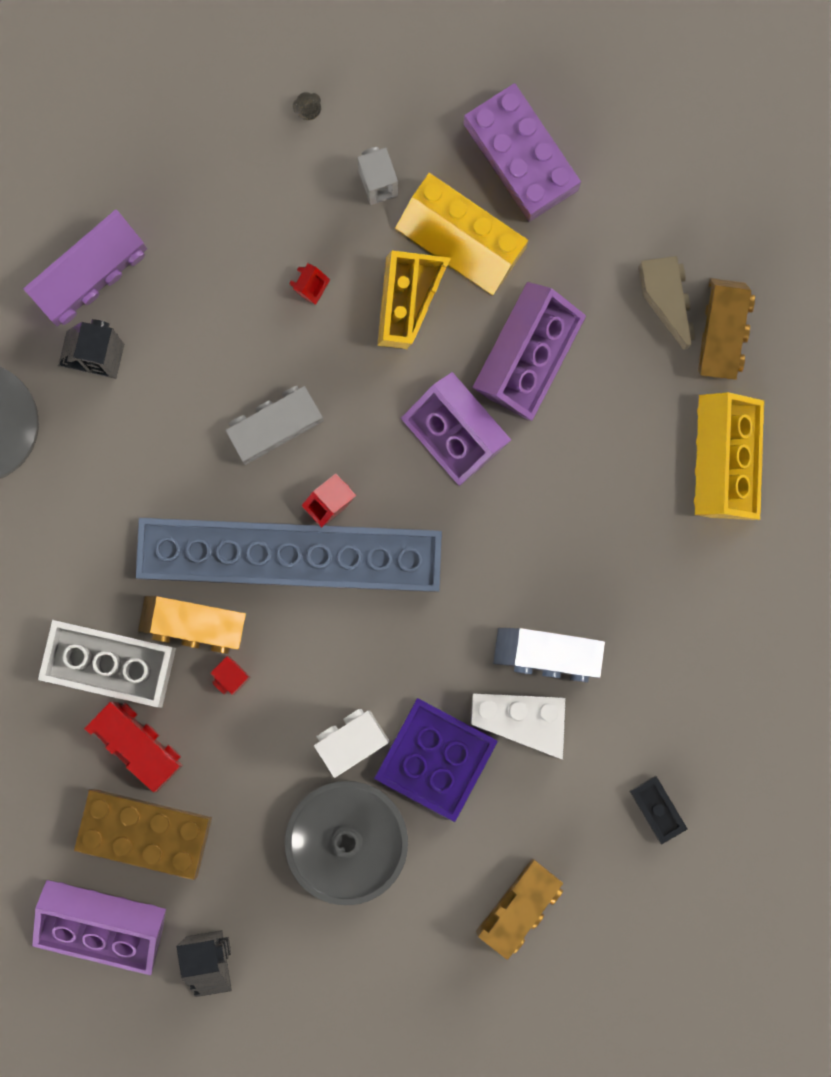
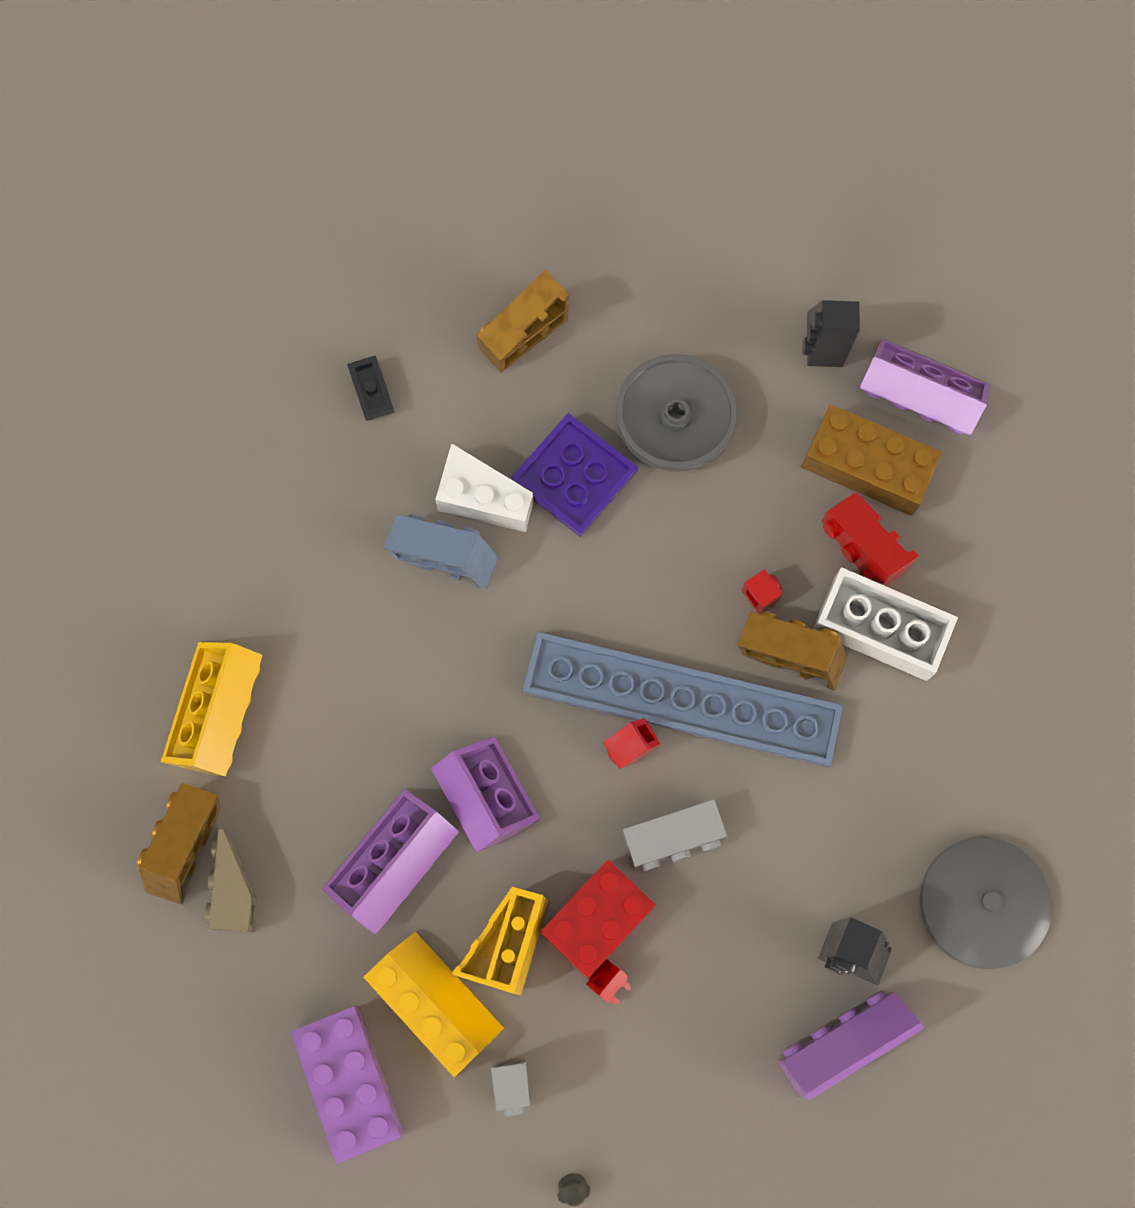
camera: 170 degrees left, 10 degrees down
(330, 334) = (597, 919): none -> red brick
(351, 743) = (655, 489): white brick -> none

